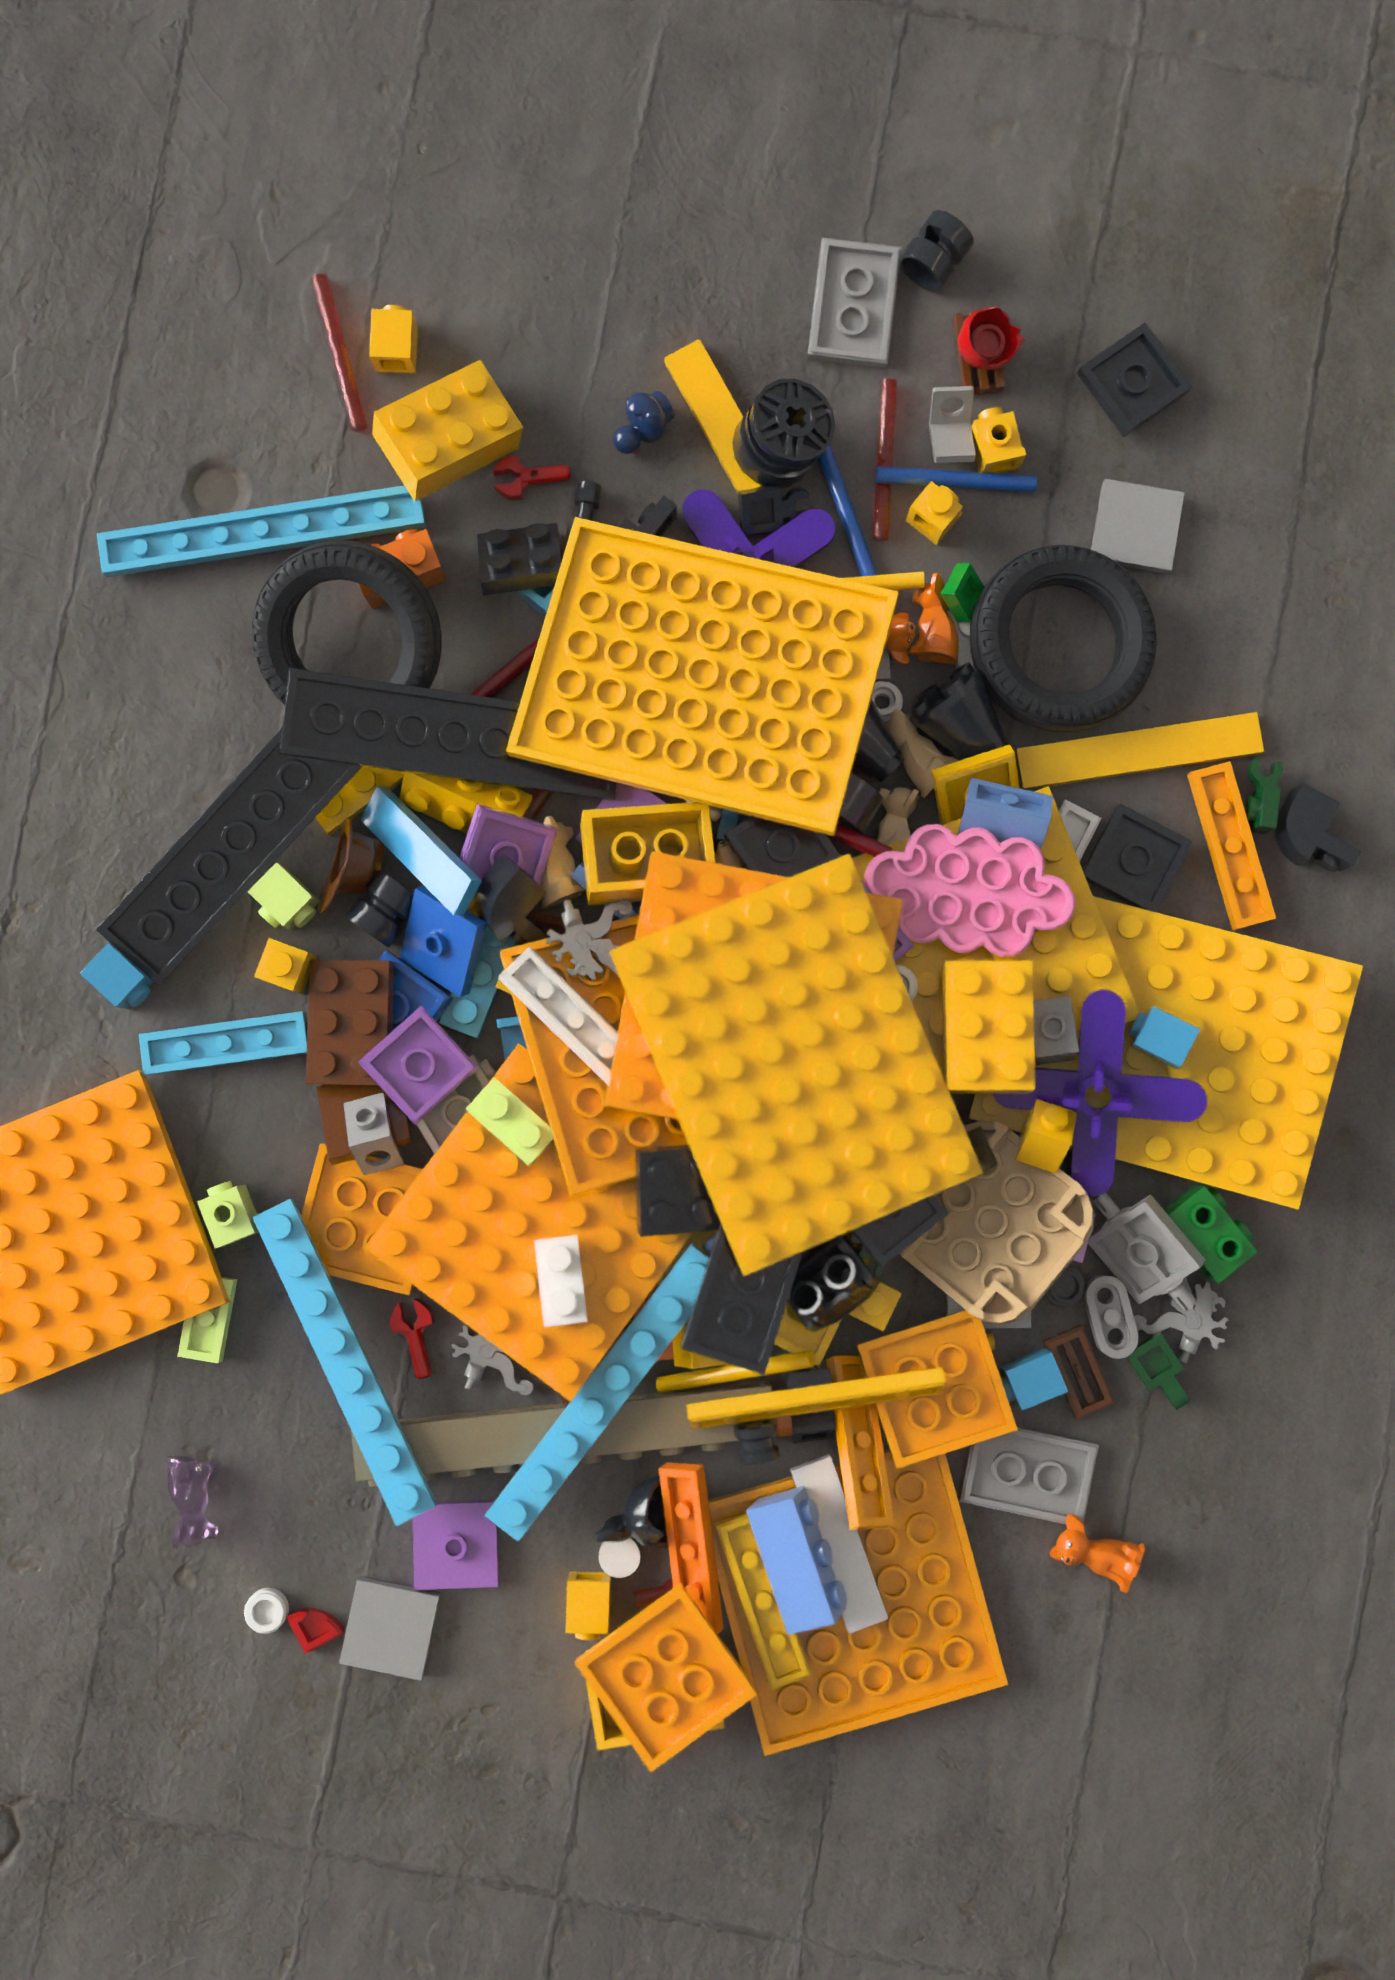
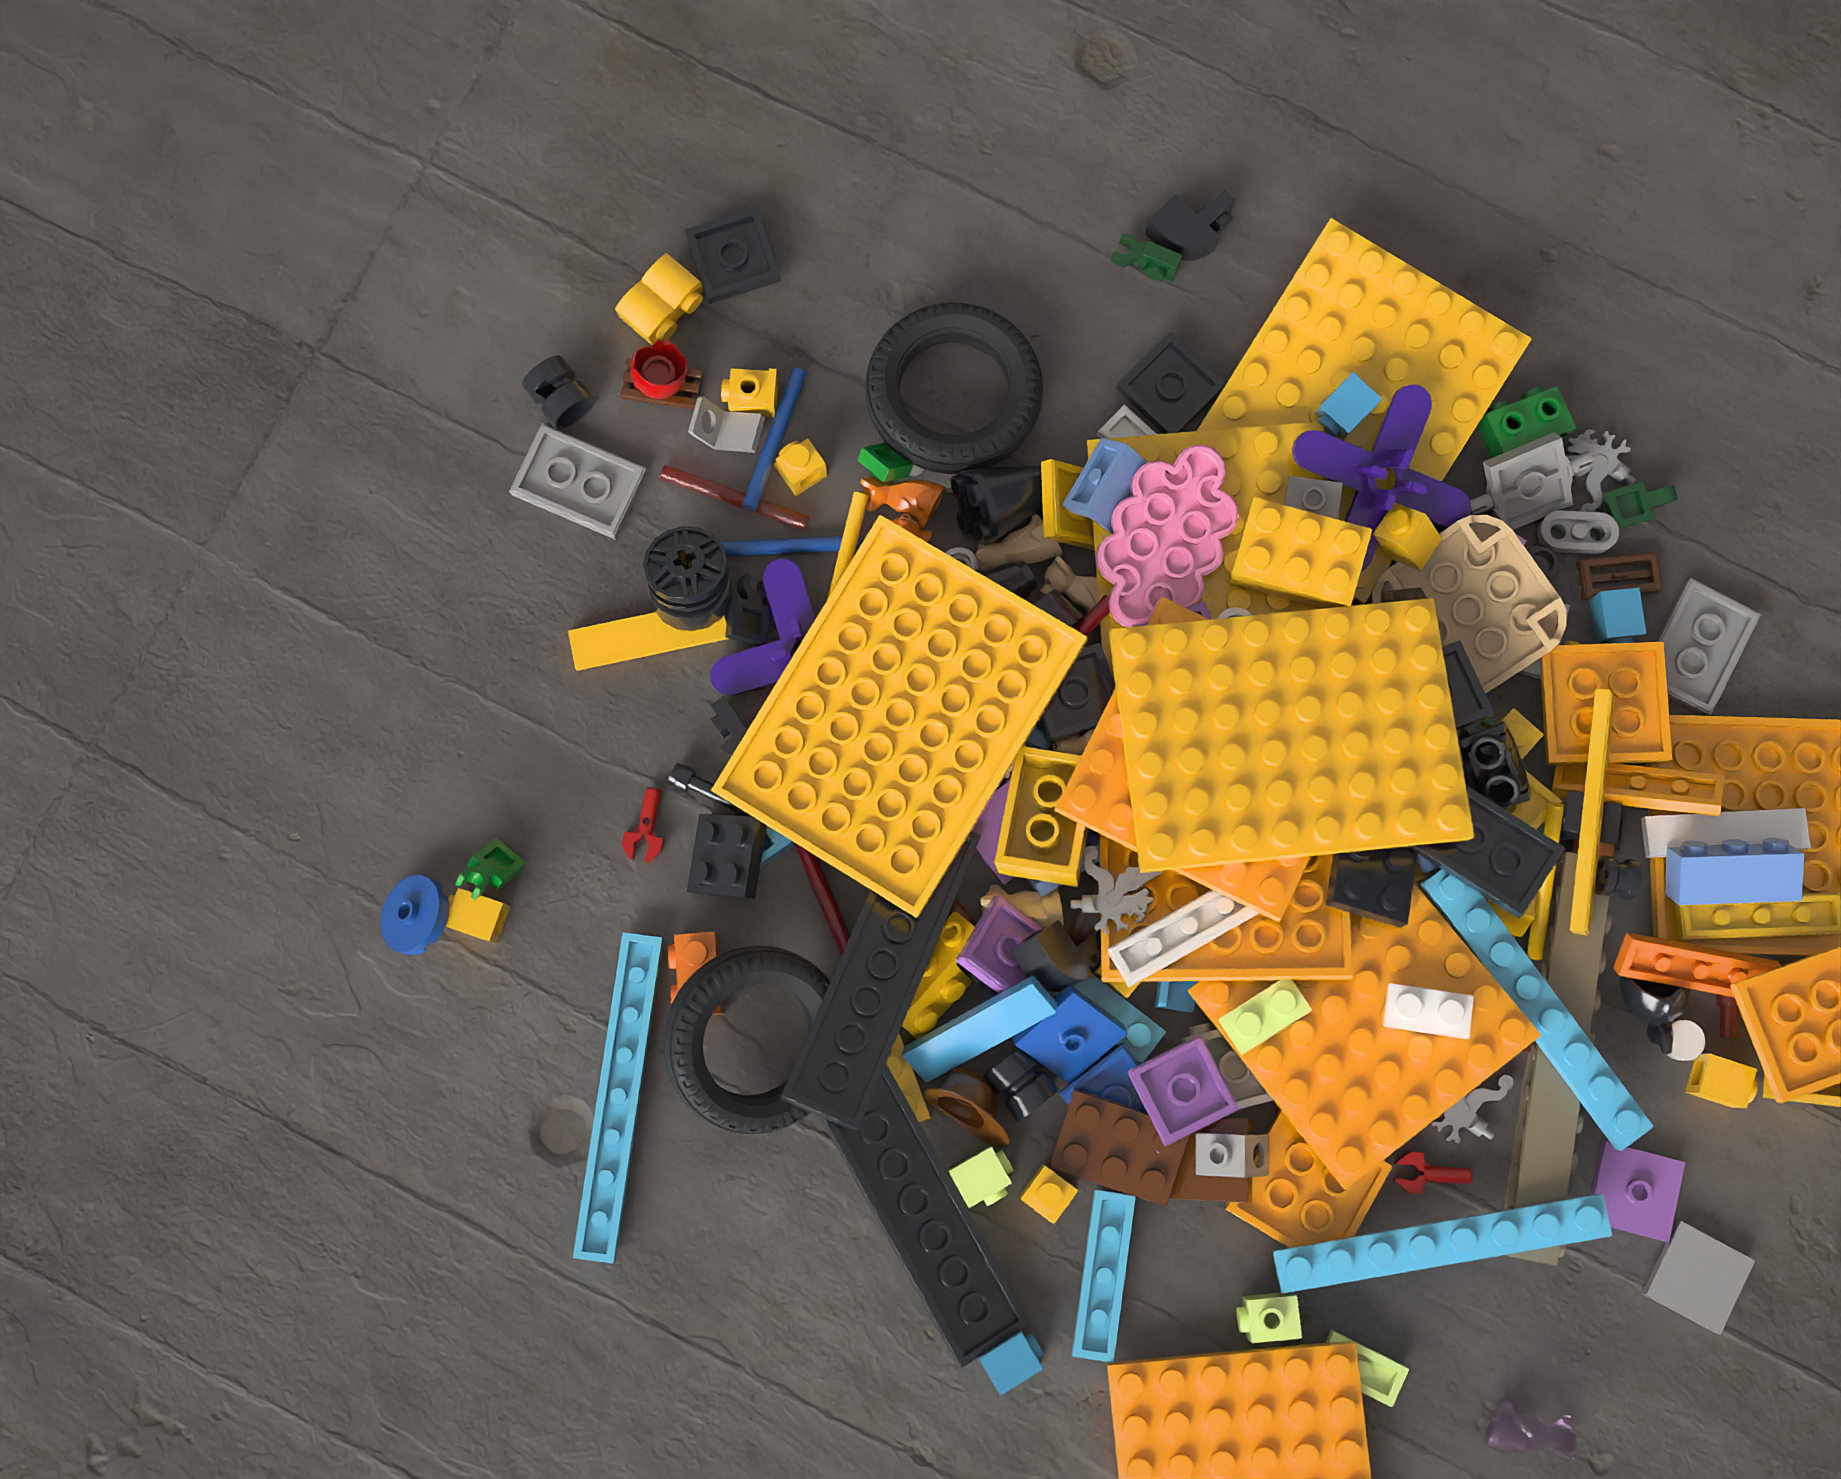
camera: 70 degrees left, 5 degrees down
(266, 1610) = (1652, 1391): white tile -> none
(314, 1627) = (1680, 1350): red tile -> none
(339, 352) = (468, 972): clear red bar -> none
(375, 280) = (414, 914): none -> blue plate
(445, 338) = (493, 866): none -> green plate
(447, 430) = (583, 888): yellow brick -> none
(647, 421) = (630, 701): dark blue animal -> none
(1064, 321) = (660, 299): none -> yellow brick
(1104, 1557) = (1792, 601): orange animal -> none
(1138, 525) = (866, 293): light grey tile -> none
(1139, 751) = (1072, 353): yellow tile -> none
(1231, 846) = (1183, 299): light orange plate -> none

